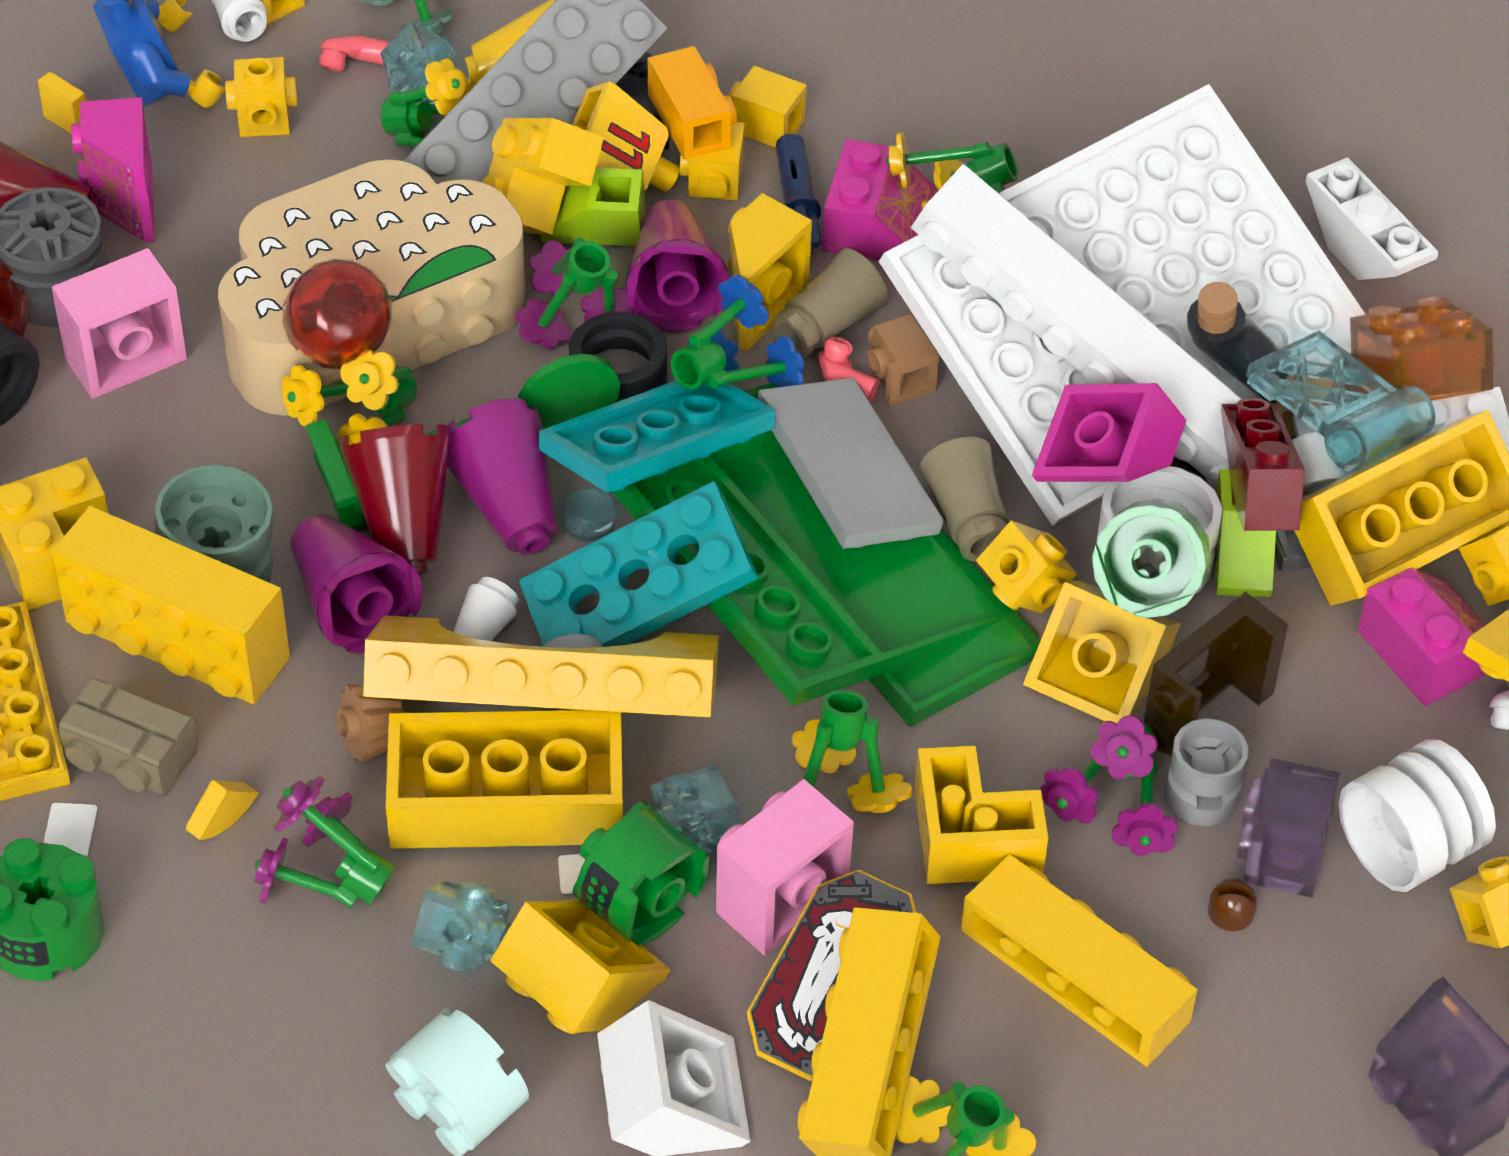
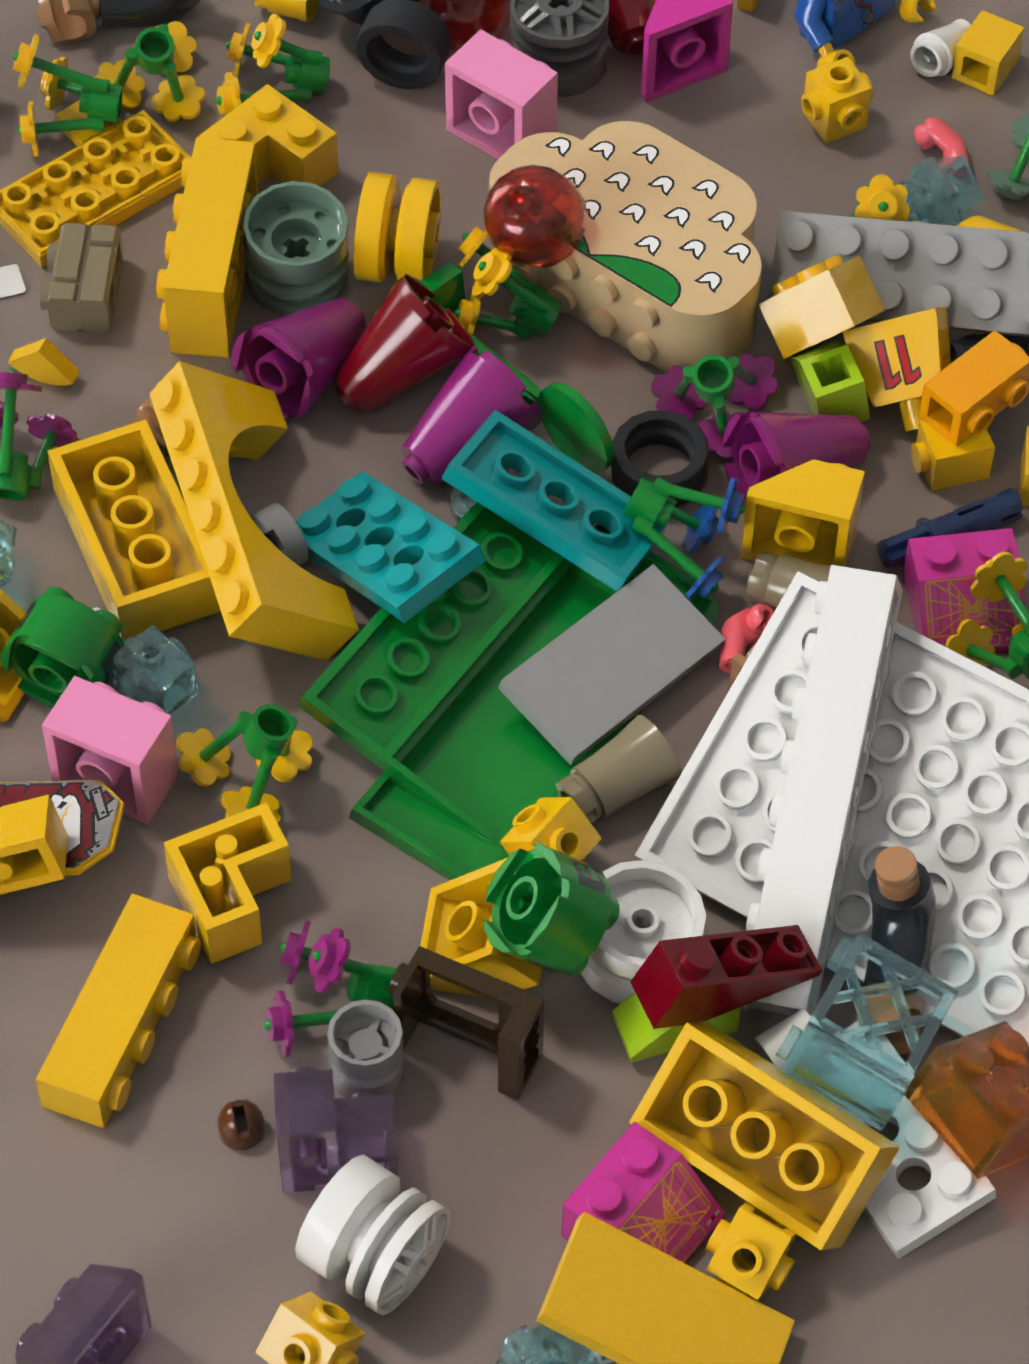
camera: 70 degrees right, 5 degrees up
(247, 431) = (396, 229): none -> yellow wheel
(486, 609) = (316, 463): white cone -> none
(1109, 434) = (692, 840): dark pink slope -> none

